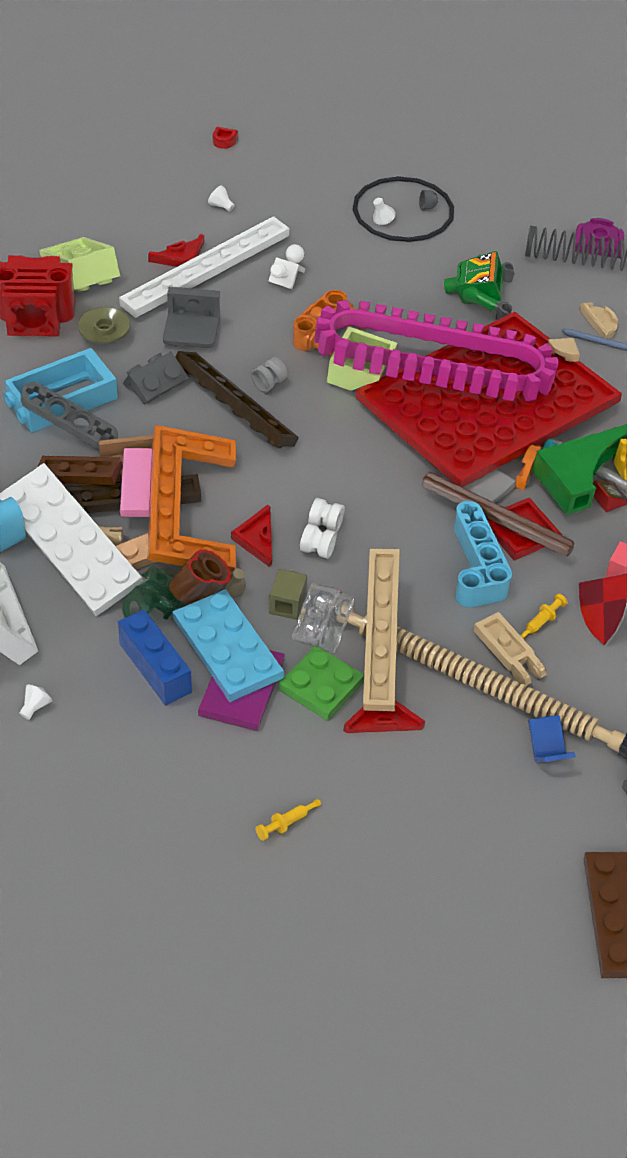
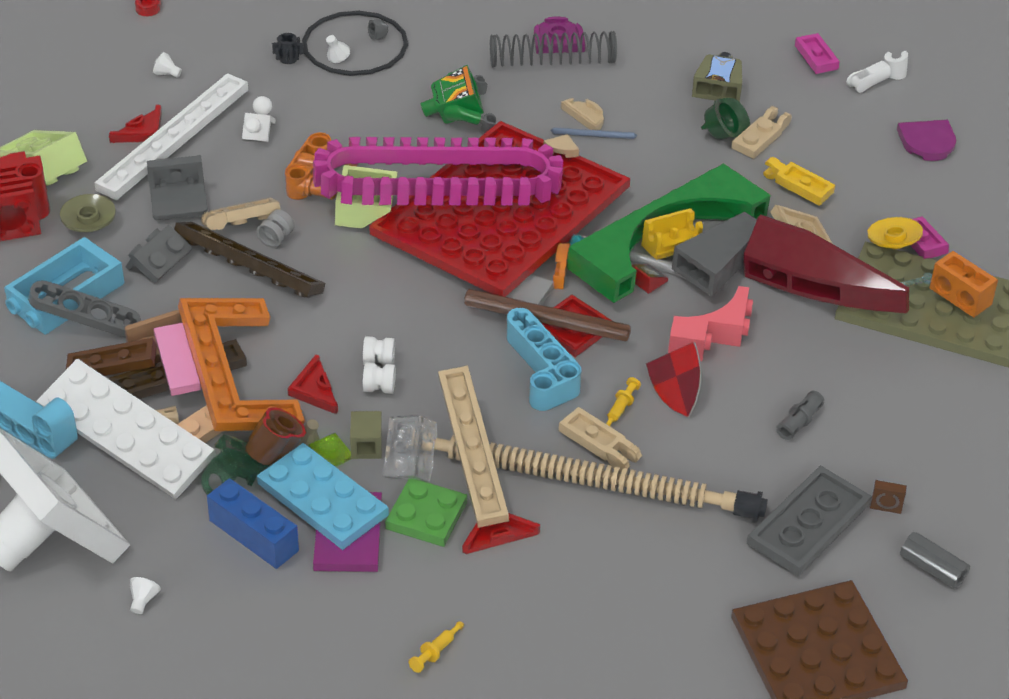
camera: 15 degrees left, 5 degrees down
(241, 353) = (239, 213): none -> tan hinge
(251, 602) = (332, 449): none -> clear neon green plate
(337, 202) = (287, 48): none -> black gear
(548, 739) = (663, 514): blue bracket -> none

